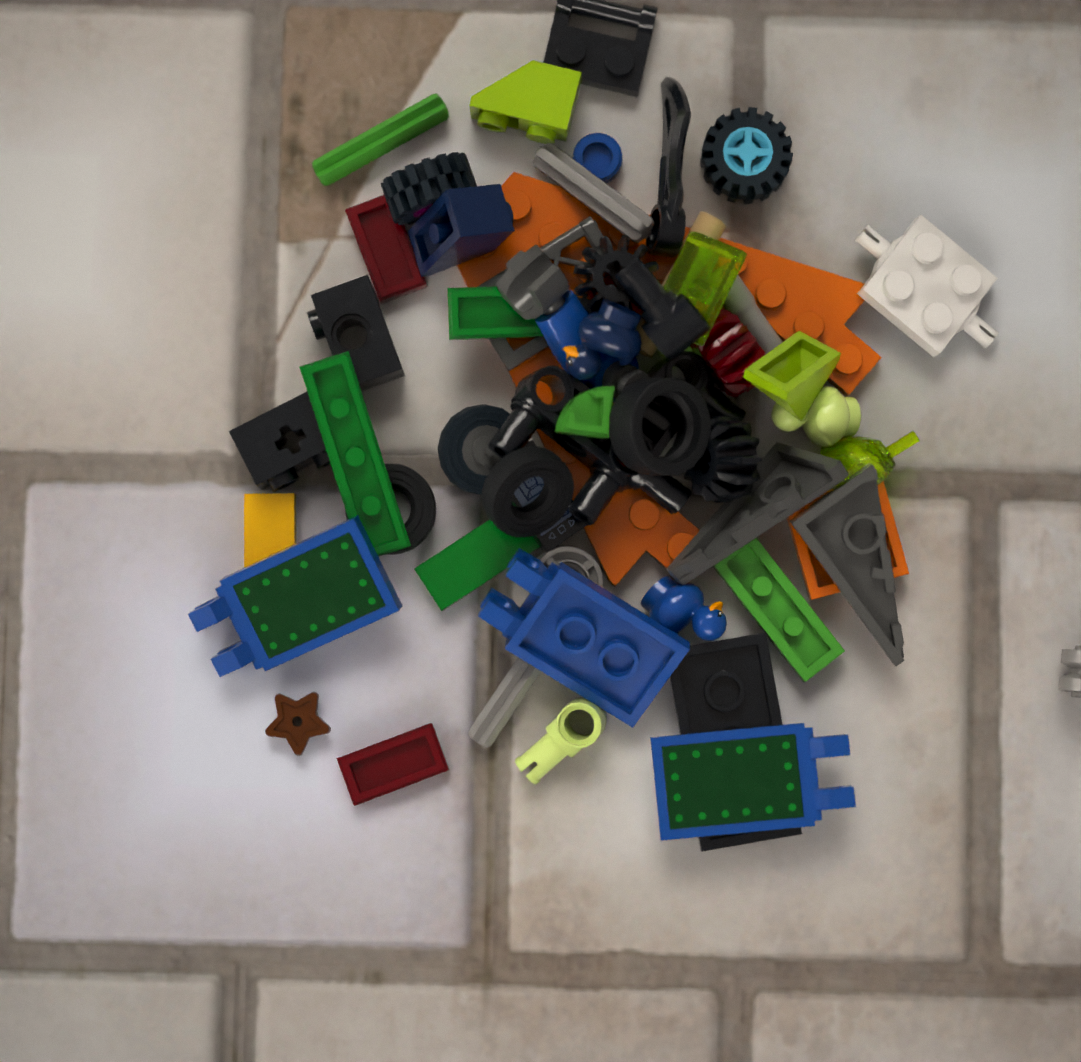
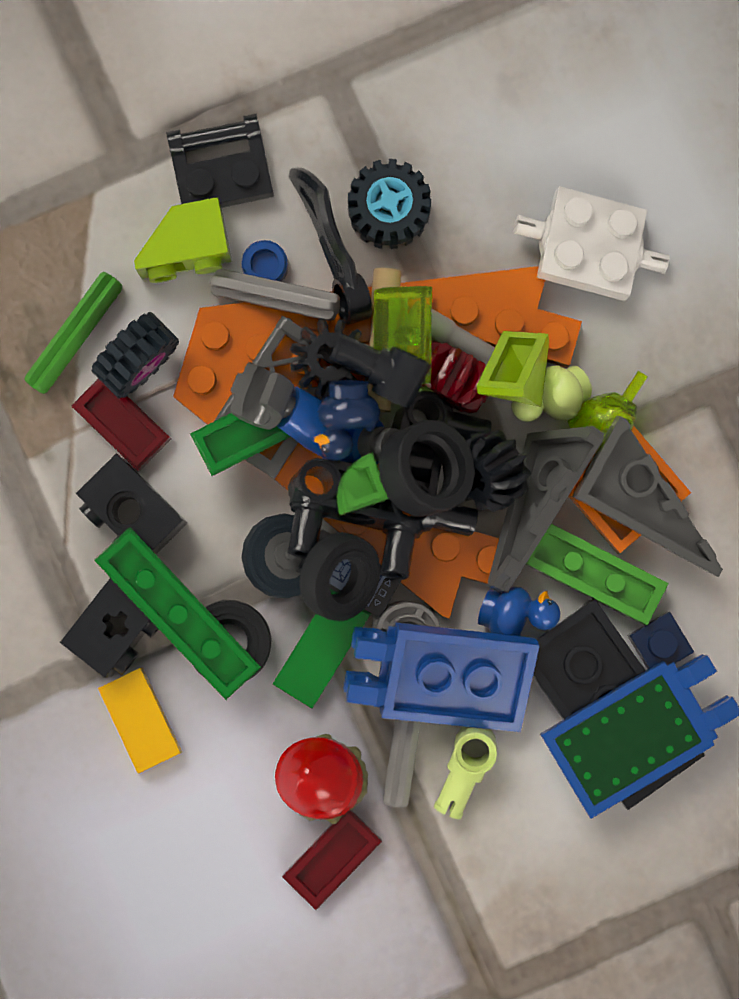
camera: 30 degrees left, 0 degrees up
(300, 598) = (187, 757): tile -> none
(311, 724) = (237, 847): reddish brown plate -> none
(419, 681) = (321, 778): none -> red hair
(461, 227) = (177, 376): dark blue slope -> none
(811, 704) = (660, 641): none -> dark blue plate

